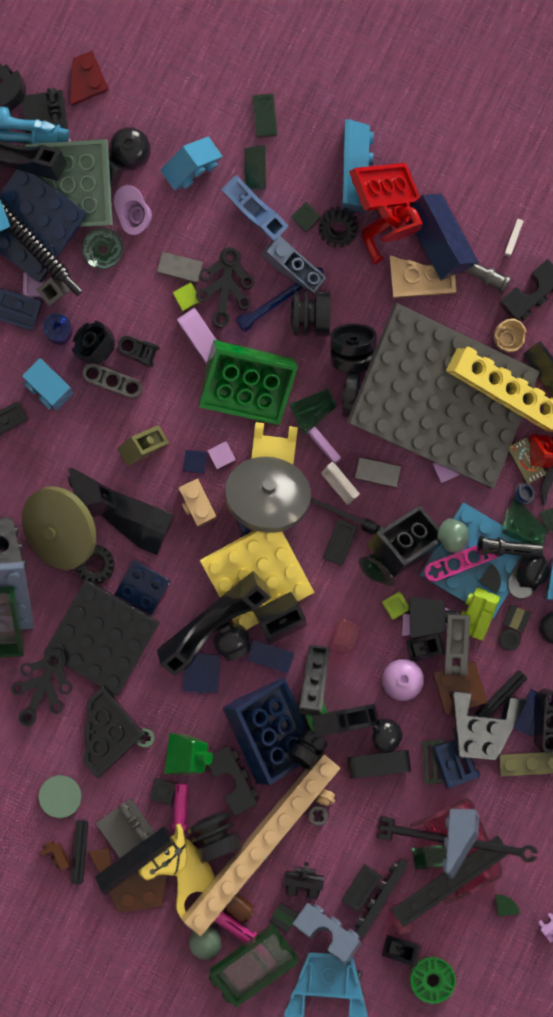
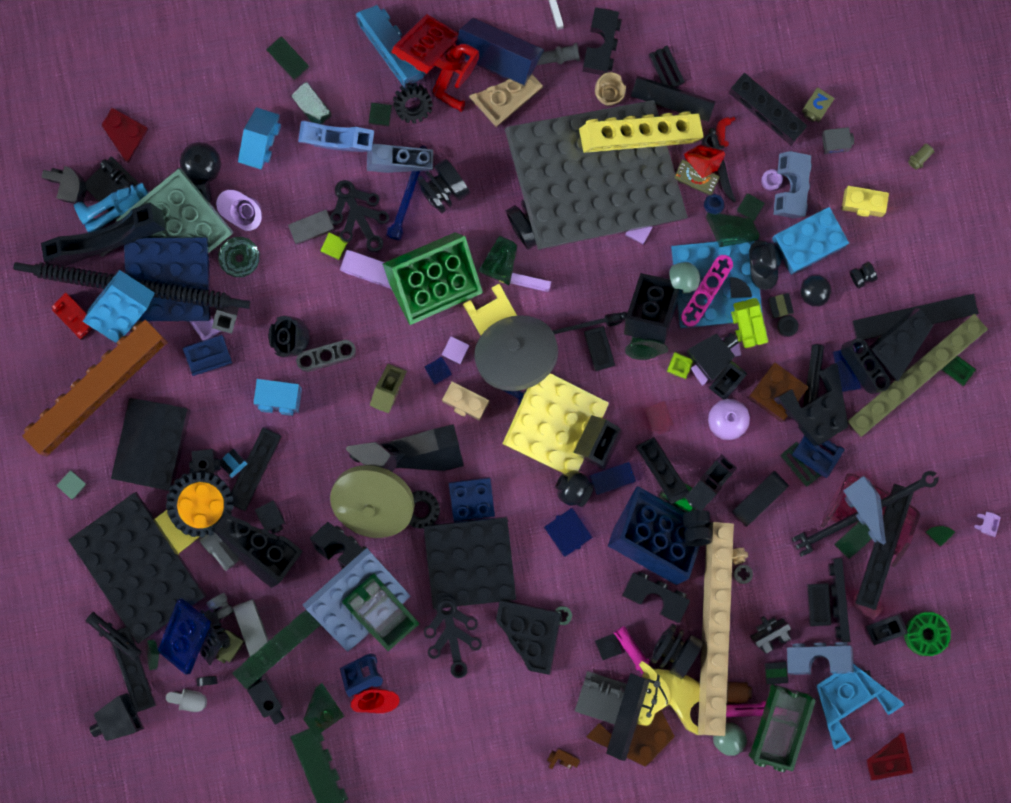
camera: 40 degrees left, 0 degrees up
(57, 328) = (251, 346): clear blue wheel -> none
(60, 796) = (531, 711): sand green tile -> none
(79, 852) = (579, 743): black axle -> none
(139, 351) = (329, 316): black piece -> none
(183, 646) = (558, 448): black arch -> none
(186, 755) = (606, 604): green torso -> none
(340, 483) = (565, 302): white tile -> none
(352, 347) = (496, 188): black wheel -> none
(377, 472) = (587, 272): flat silver tile -> none
(387, 735) = (750, 471): black hair -> none
(457, 644) = (752, 358): dark grey plate -> none
(500, 547) = (728, 258): black pin -> none

